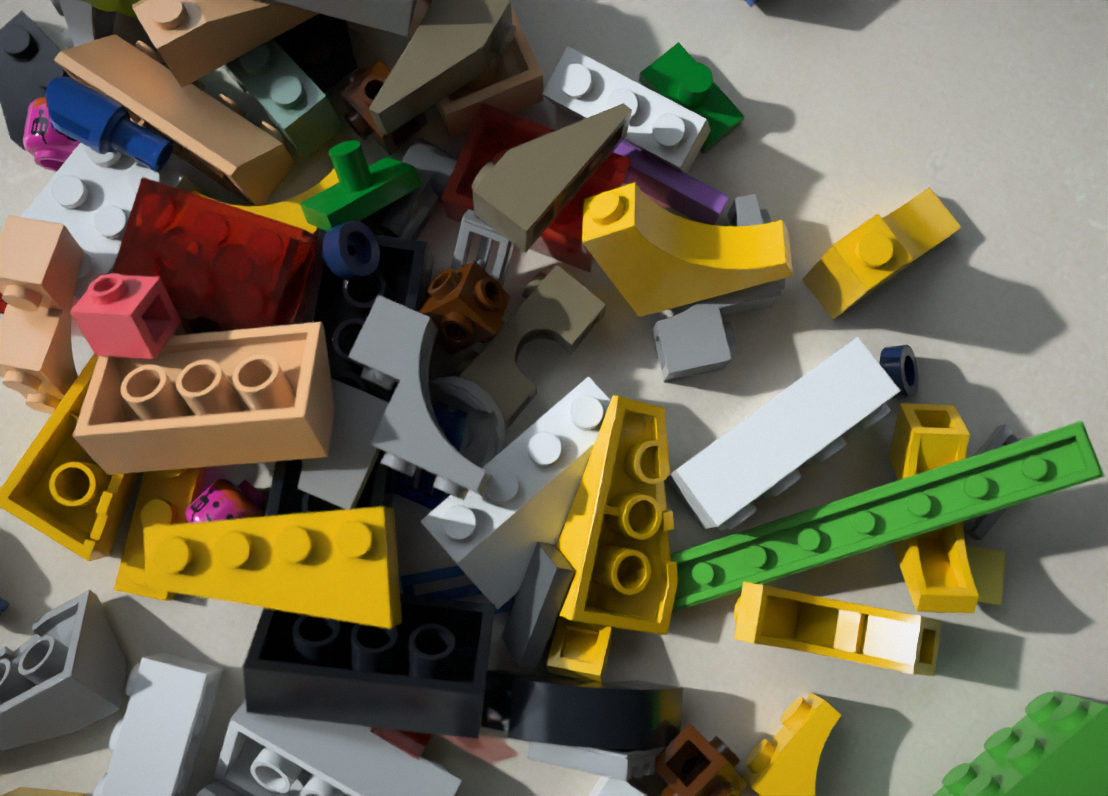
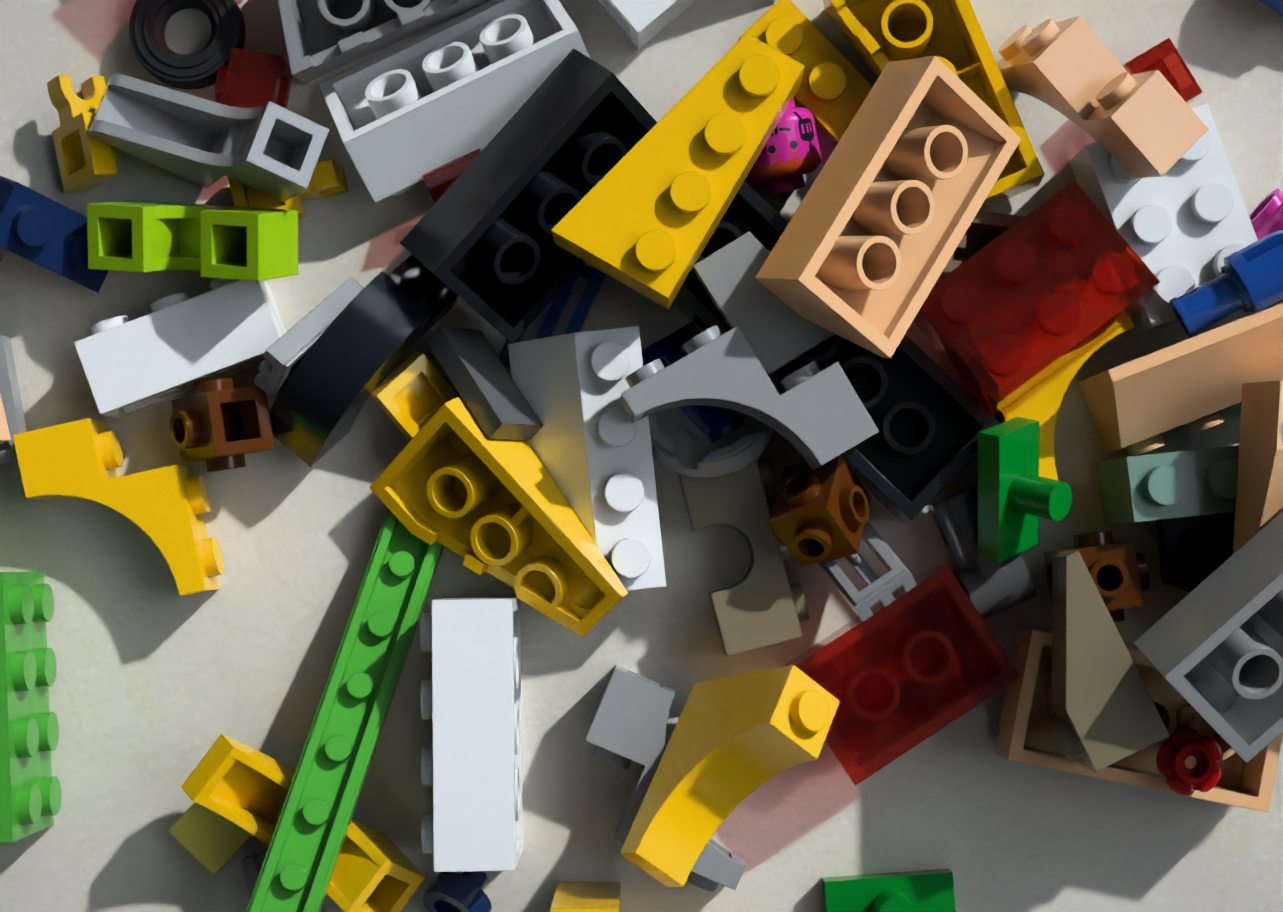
camera: 125 degrees right, 5 degrees up
(126, 316) = (1026, 178): coral brick -> none
(350, 250) = (948, 437): dark blue tile -> none
(543, 175) = (891, 676): dark tan slope -> none
(656, 123) = (914, 822): white brick -> none
(673, 186) = (827, 806): medium lavender tile -> none
(837, 629) = (259, 651): yellow arch -> none

